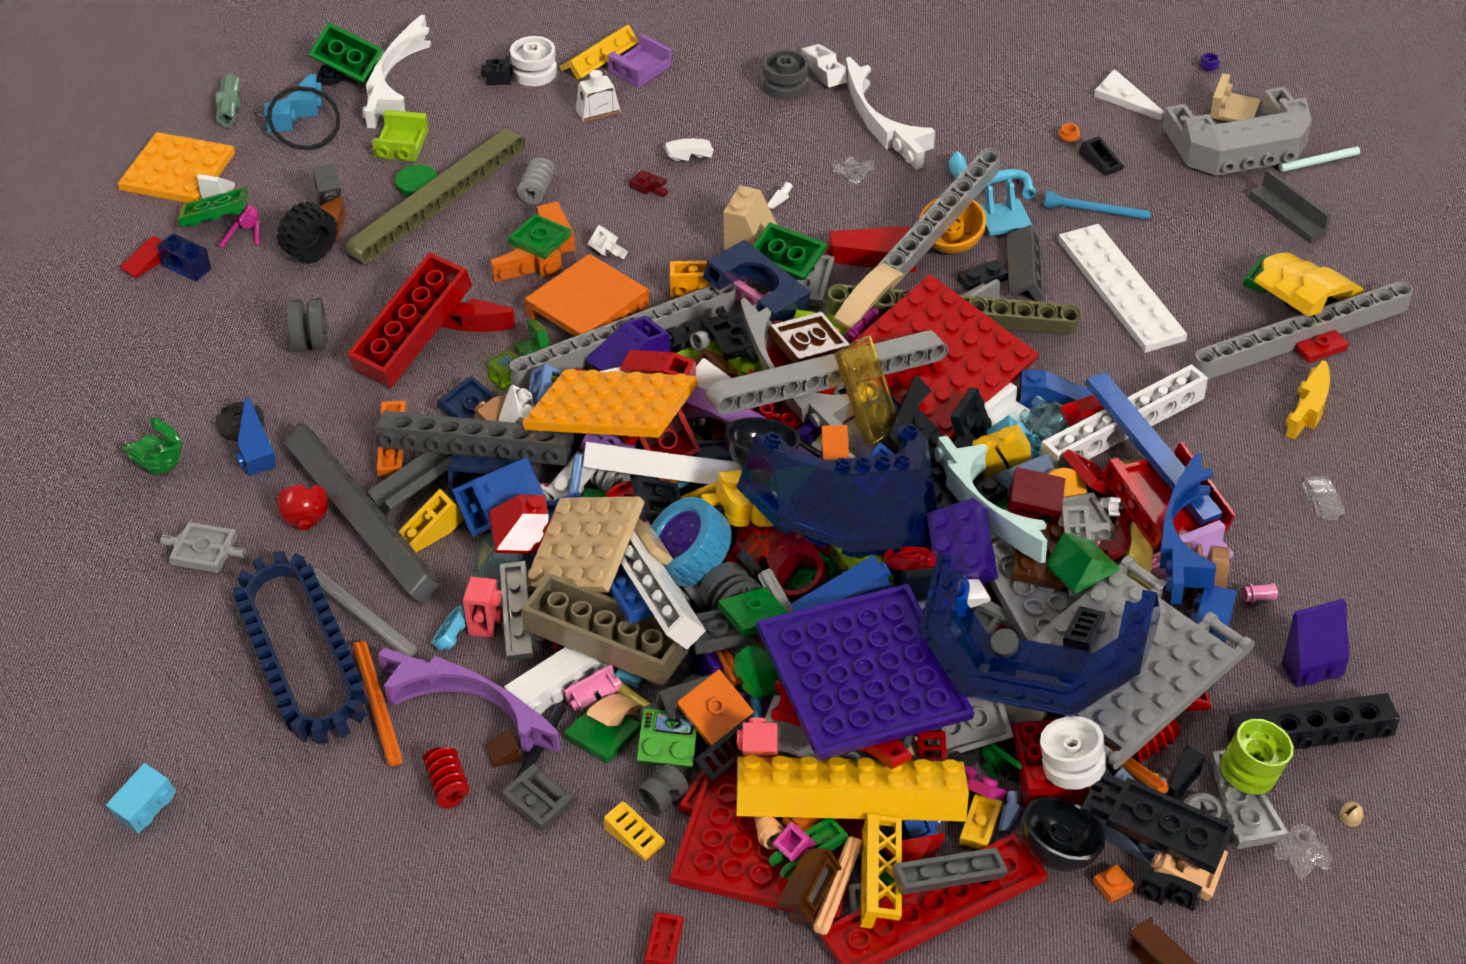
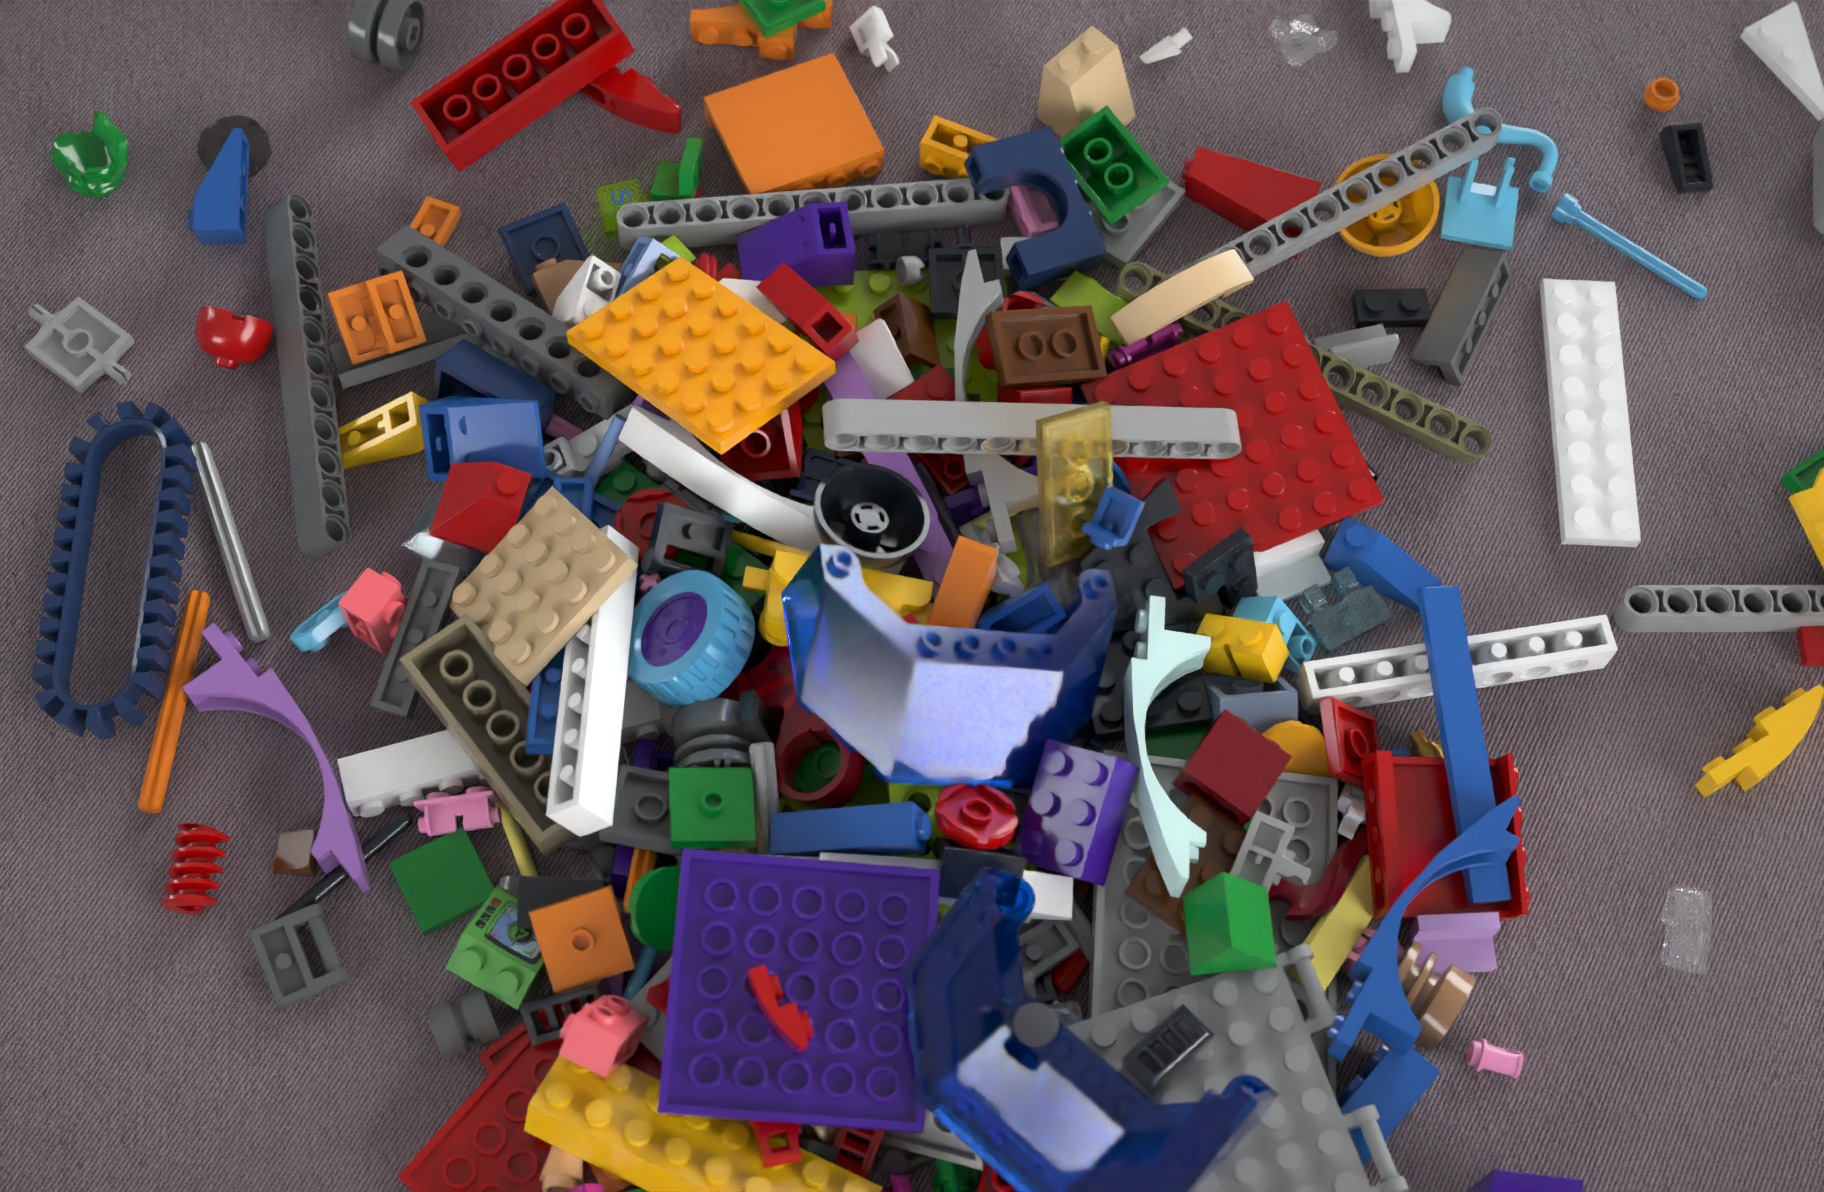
camera: 20 degrees right, 20 degrees up
(392, 464) = (376, 317): none -> orange slope
(613, 709) = (467, 857): light nougat slope -> none
(620, 818) = (383, 1037): yellow slope -> none
(652, 542) = (630, 625): tan tile -> none
(864, 678) = (786, 1019): none -> red slope
(898, 401) = (1113, 519): none -> blue bracket
(1080, 409) = (1394, 624): red panel -> none

